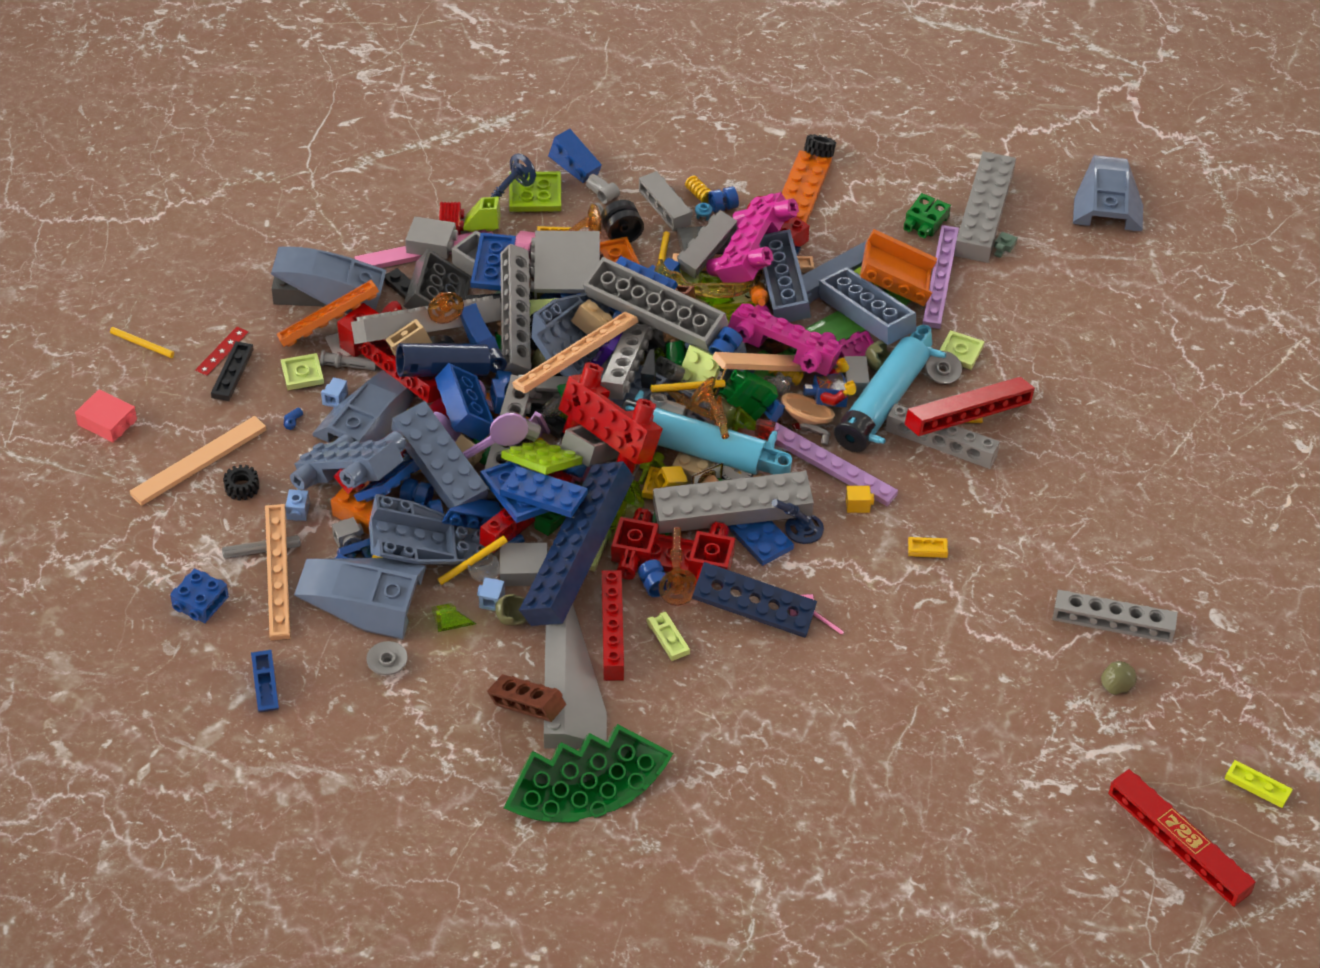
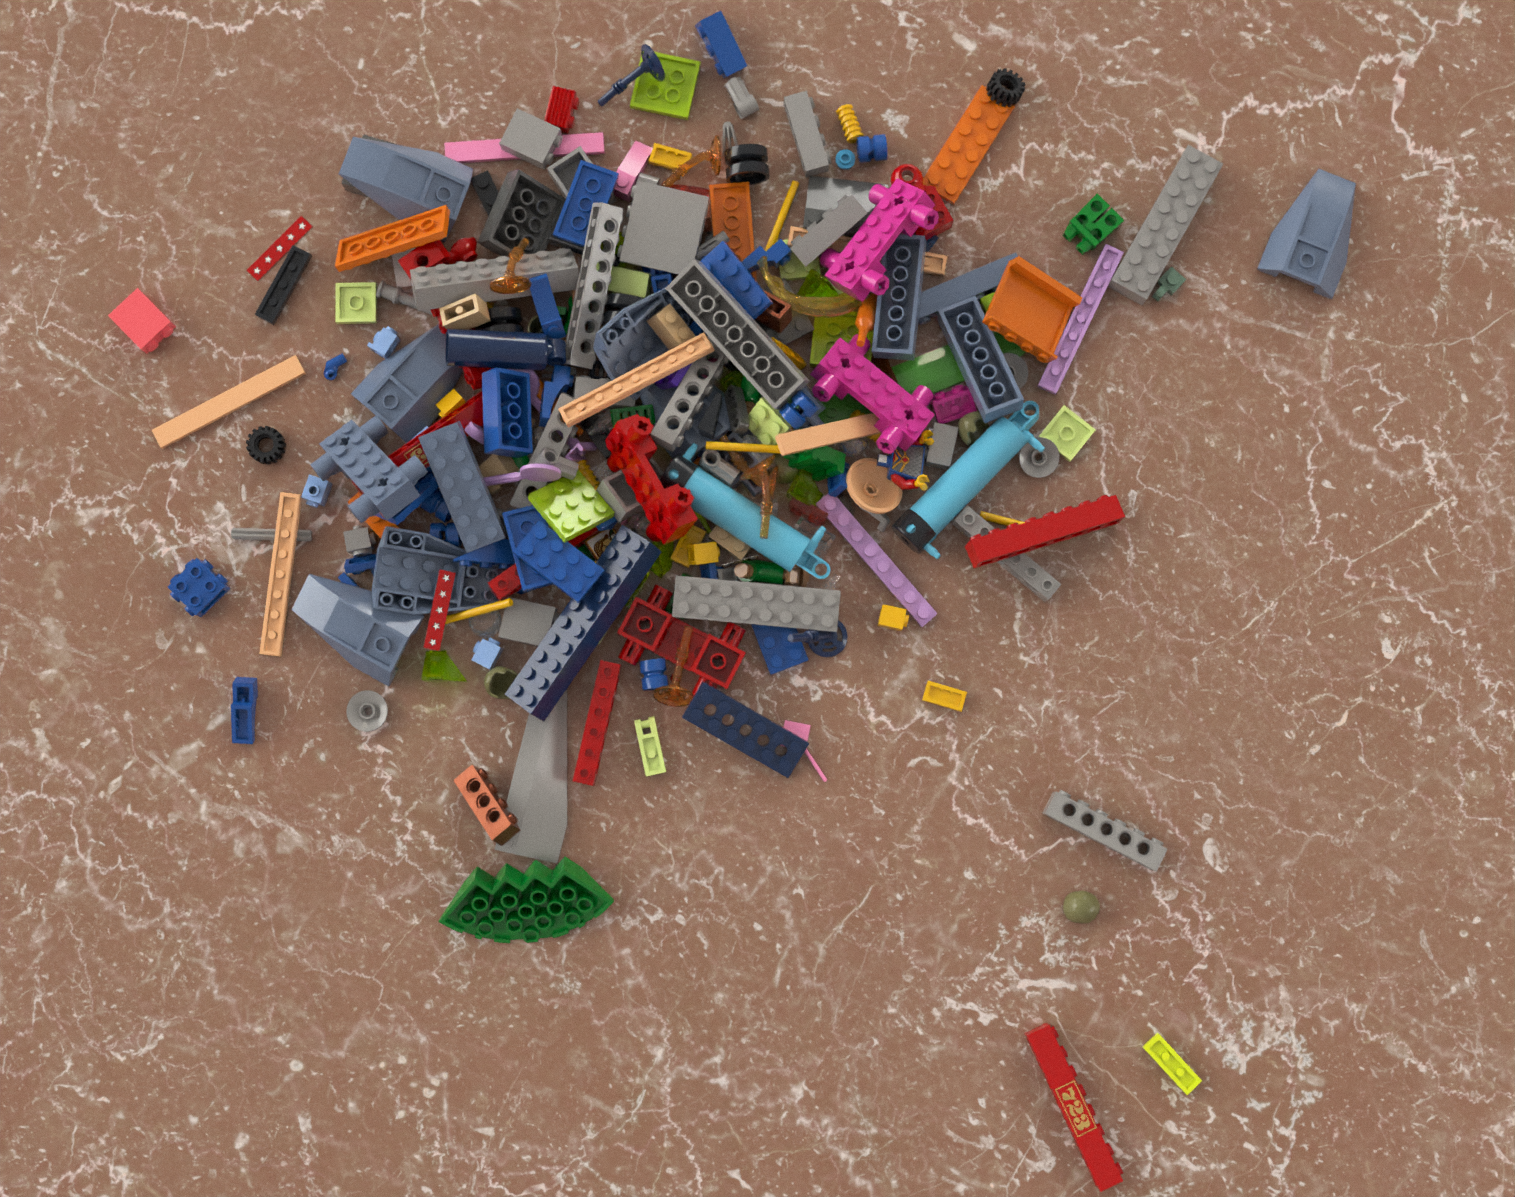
camera: 15 degrees right, 35 degrees up
(144, 343) = (196, 218): yellow bar -> none
(439, 559) = (439, 610): none -> red sticker
(483, 215) = (596, 116): lime slope -> none

